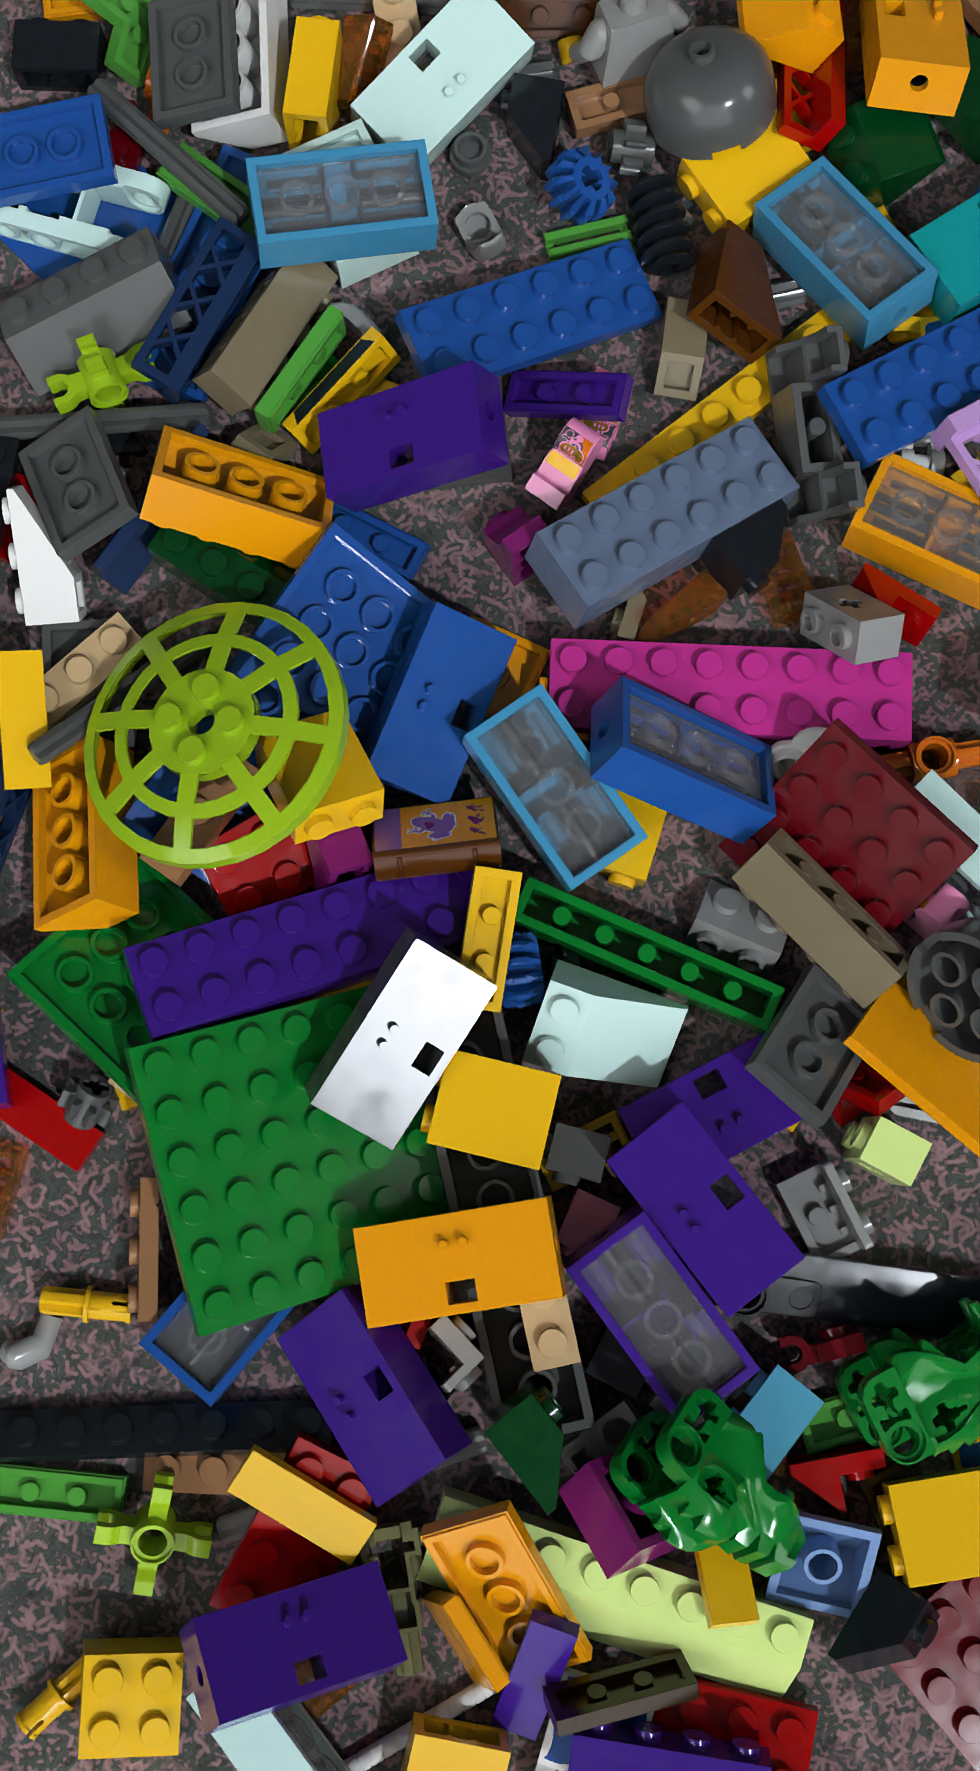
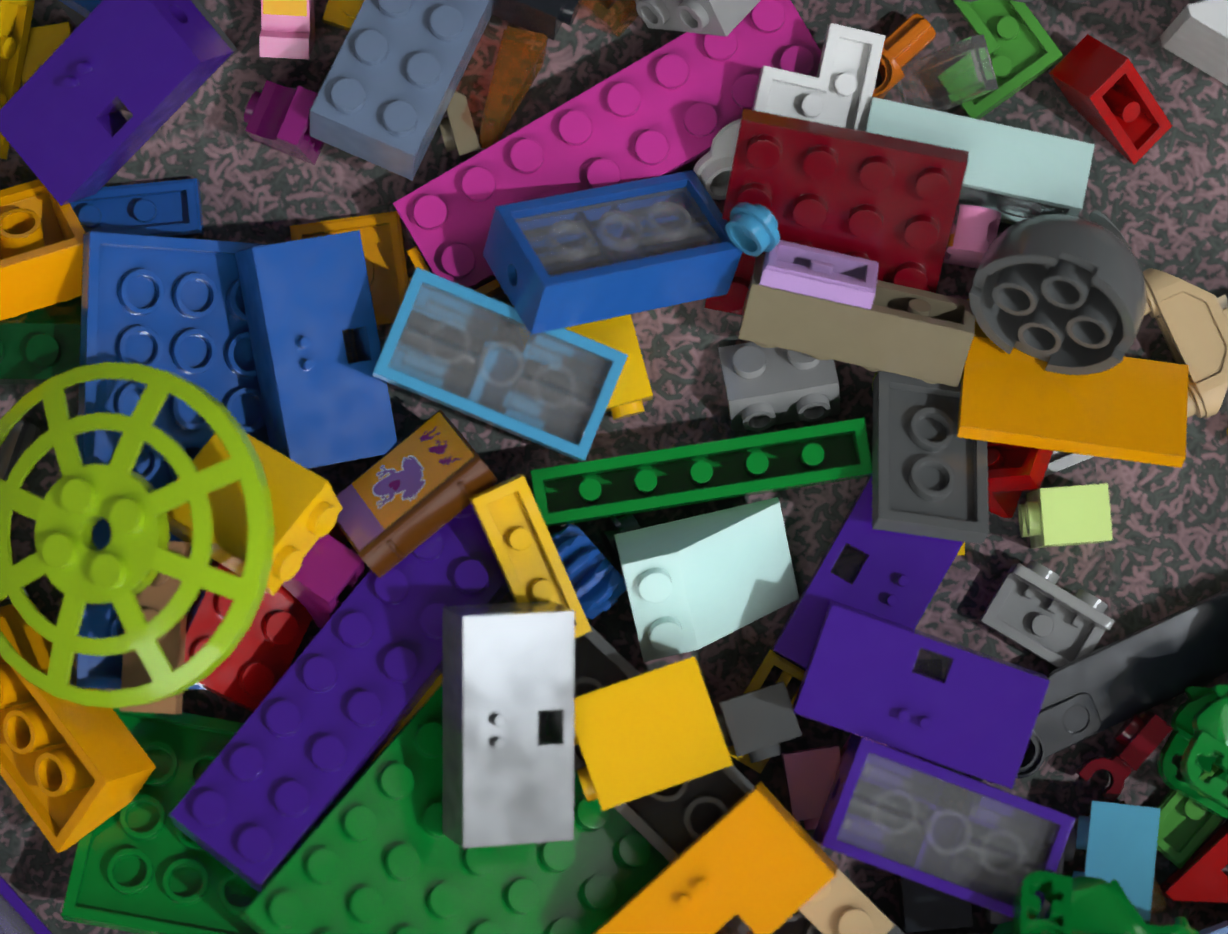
camera: 30 degrees left, 5 degrees up
(791, 805) = (753, 229): none -> dark azure plate
(818, 867) = (820, 274): none -> lavender tile
(914, 748) = (842, 86): none -> white plate

